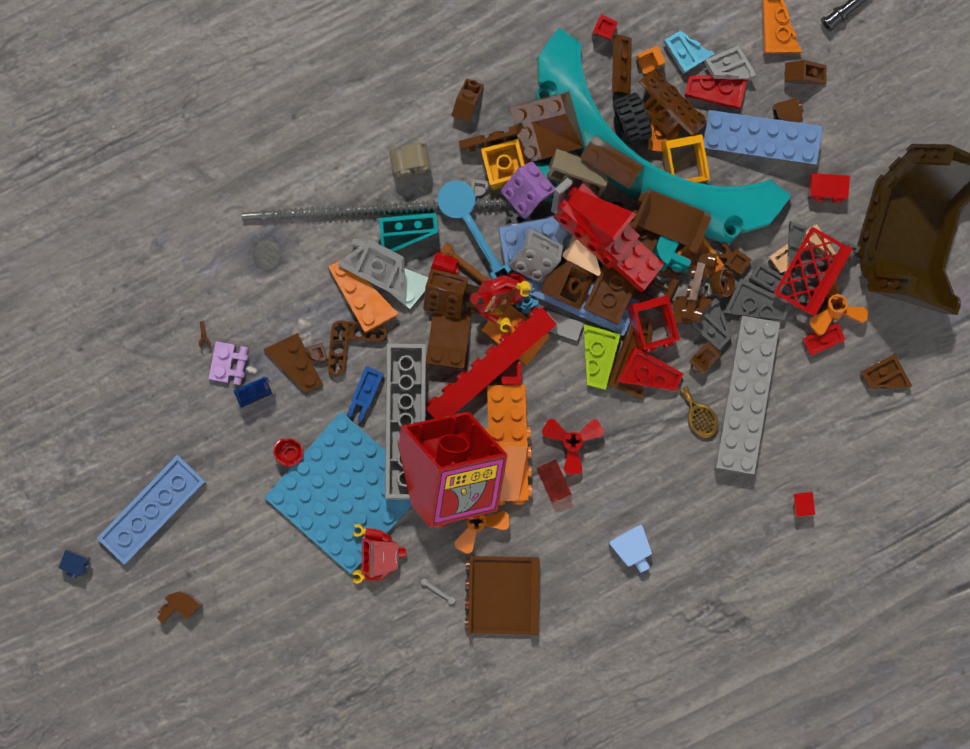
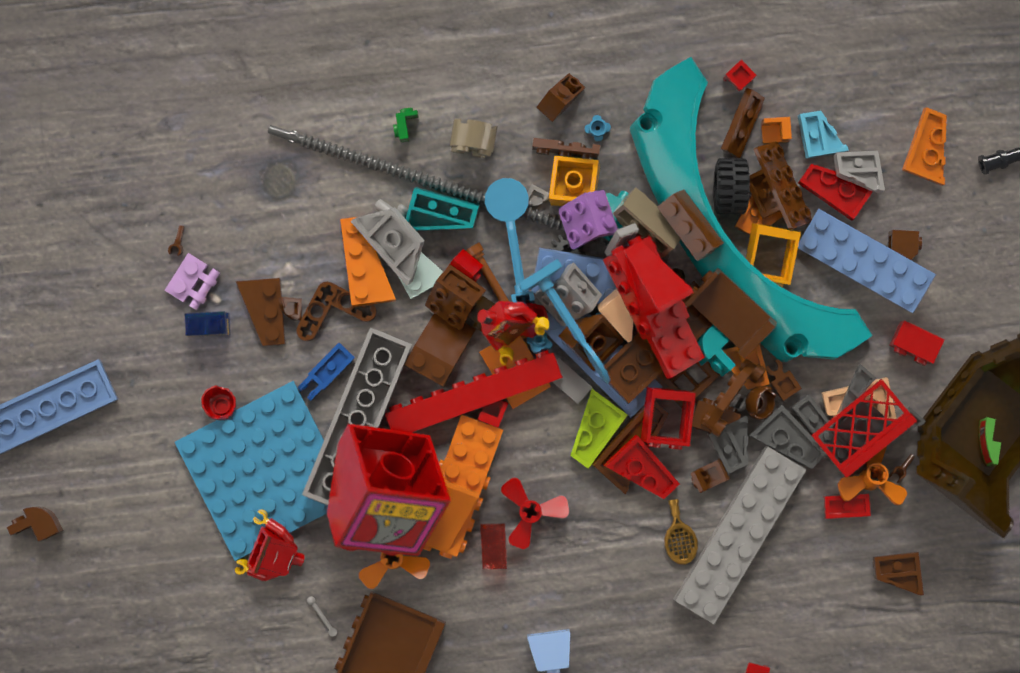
camera: 25 degrees right, 0 degrees up
(348, 174) = (400, 128): none -> green bracket
(501, 115) = (591, 128): none -> dark azure plate
(511, 251) = (543, 280): none -> dark azure piece
(546, 126) = (635, 158): reddish brown slope -> none
(805, 72) = (939, 208): reddish brown slope -> none
(856, 293) = (901, 470): none -> reddish brown hand
(919, 249) = (989, 448): none -> bright green slope

